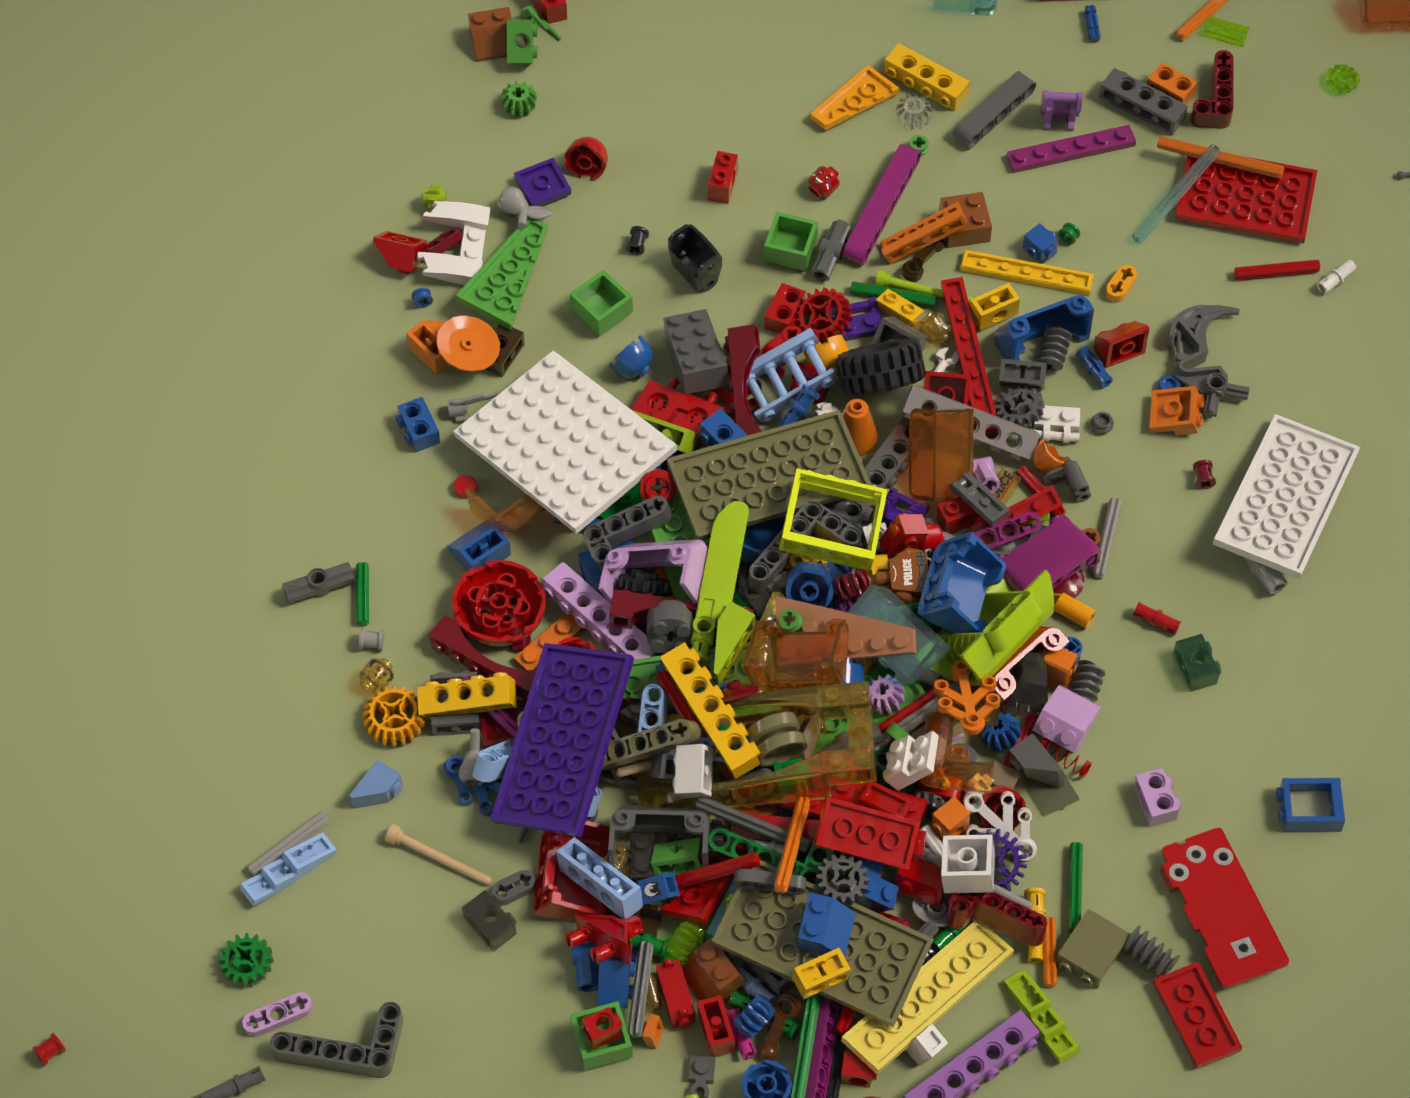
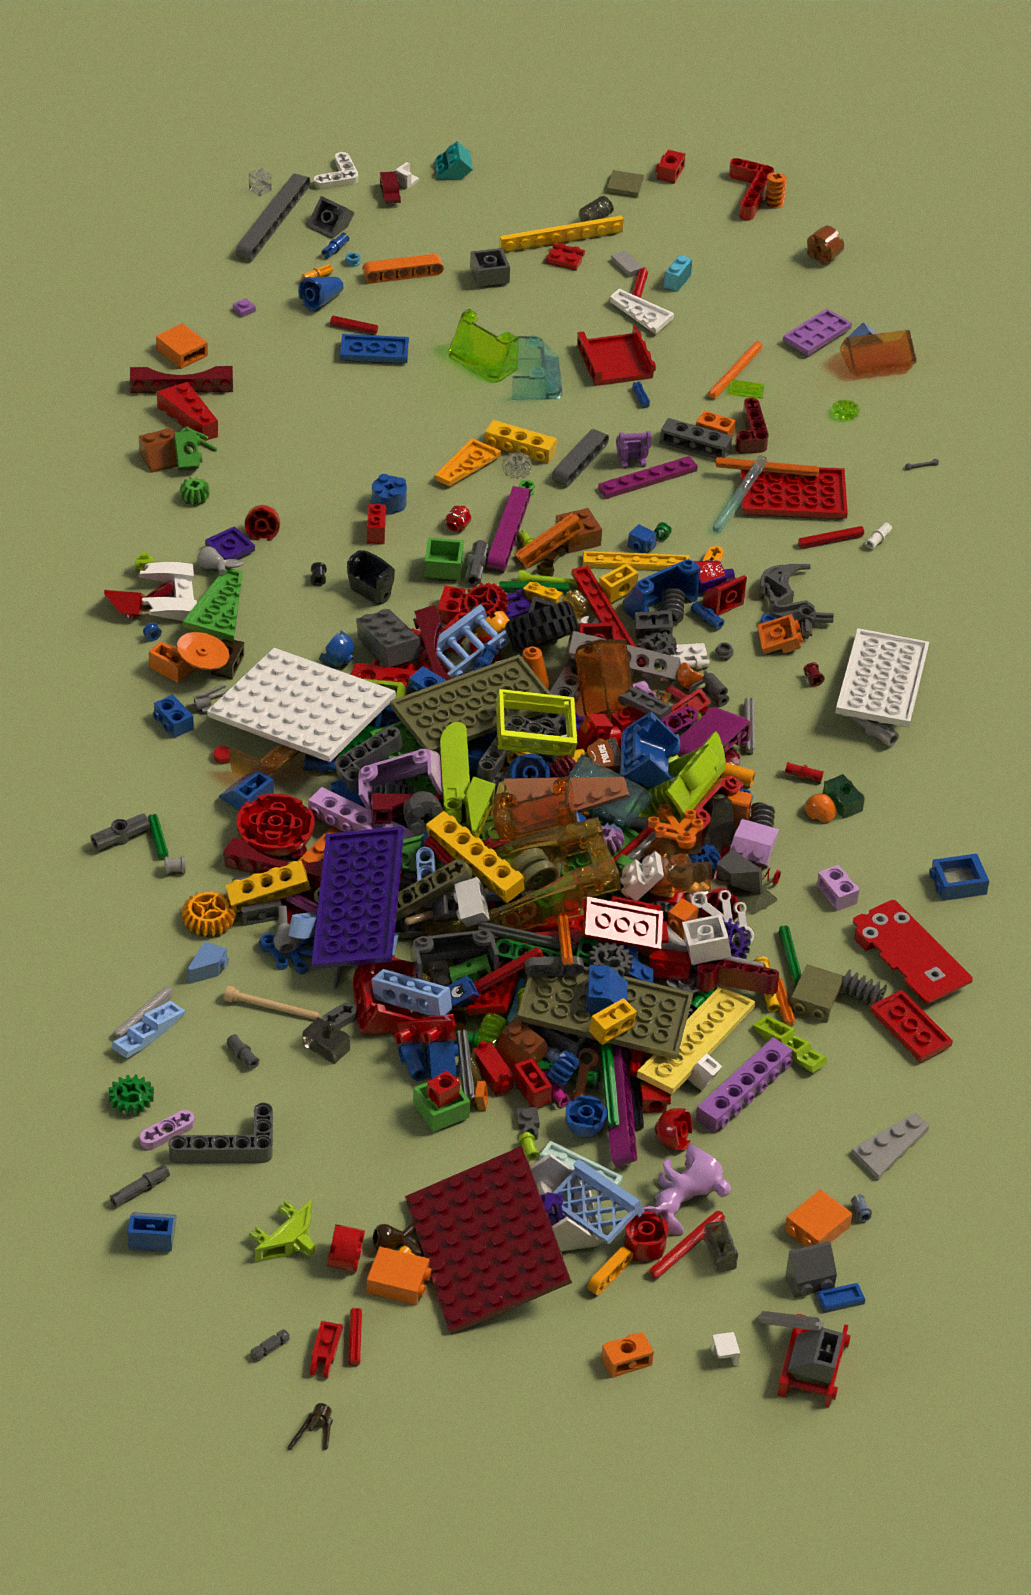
camera: 15 degrees left, 15 degrees down
(376, 675) = (186, 885): clear yellow head -> none
(389, 919) = (243, 1051): none -> dark grey pin
(601, 302) = (302, 616): bright green piece -> none
(663, 478) = (388, 716): red gear -> none
(748, 135) = (390, 492): none -> blue brick
(795, 625) = (526, 793): bright green bush -> none
(898, 222) = (524, 539): none -> lime pin
(1111, 309) = (712, 574): none -> torso
(1164, 675) = (820, 807): none -> orange hair

